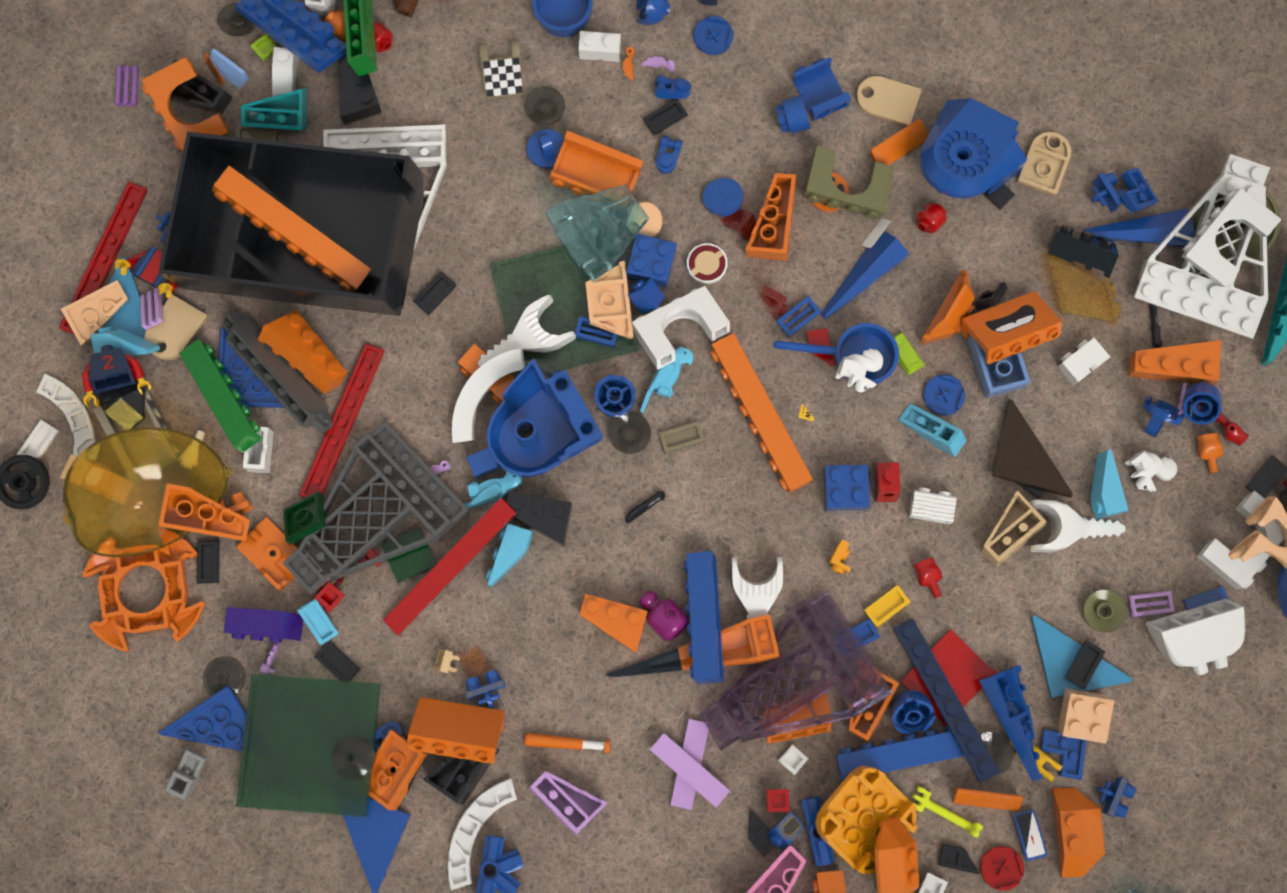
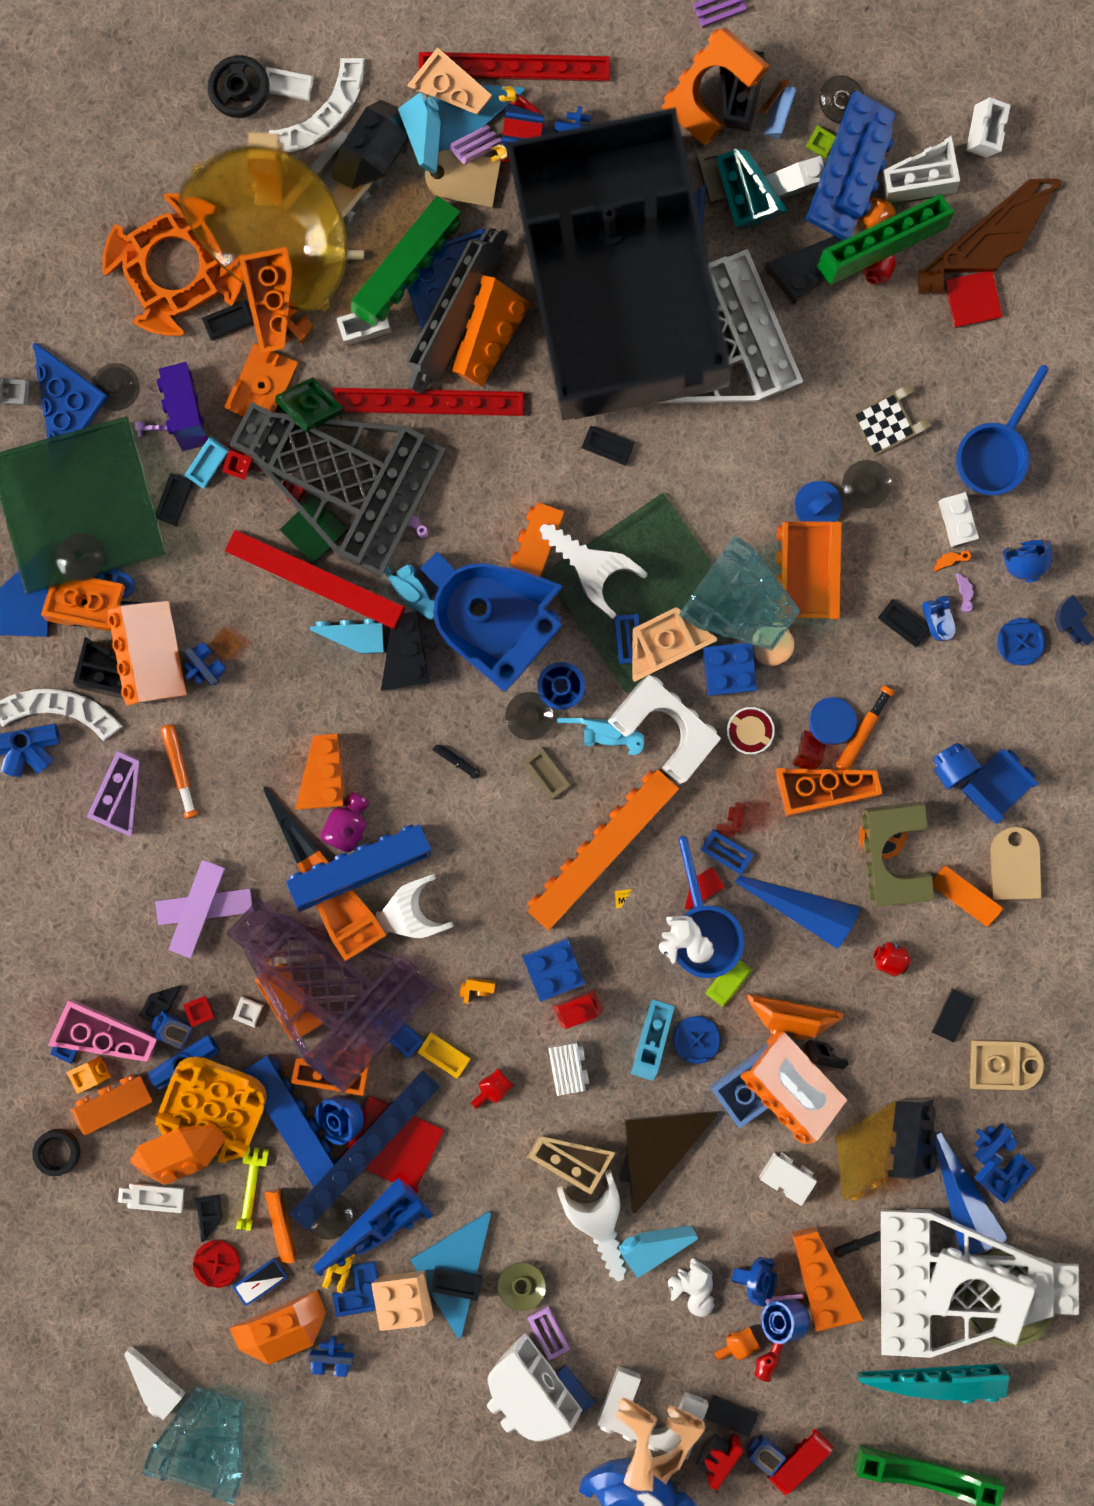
camera: 75 degrees right, 10 degrees up
(110, 371) = (384, 134): dark blue torso -> none
(291, 229) = (606, 267): orange brick -> none
(443, 661) = (215, 610): tan tile -> none
(477, 387) = (517, 534): white tile -> none
(646, 295) = (686, 678): blue brick -> none
(667, 161) = (852, 644): blue plate -> none
(746, 184) = (859, 738): none -> orange piece
(876, 233) = (853, 904): white sticker -> none
(971, 150) = (980, 975): blue animal -> none

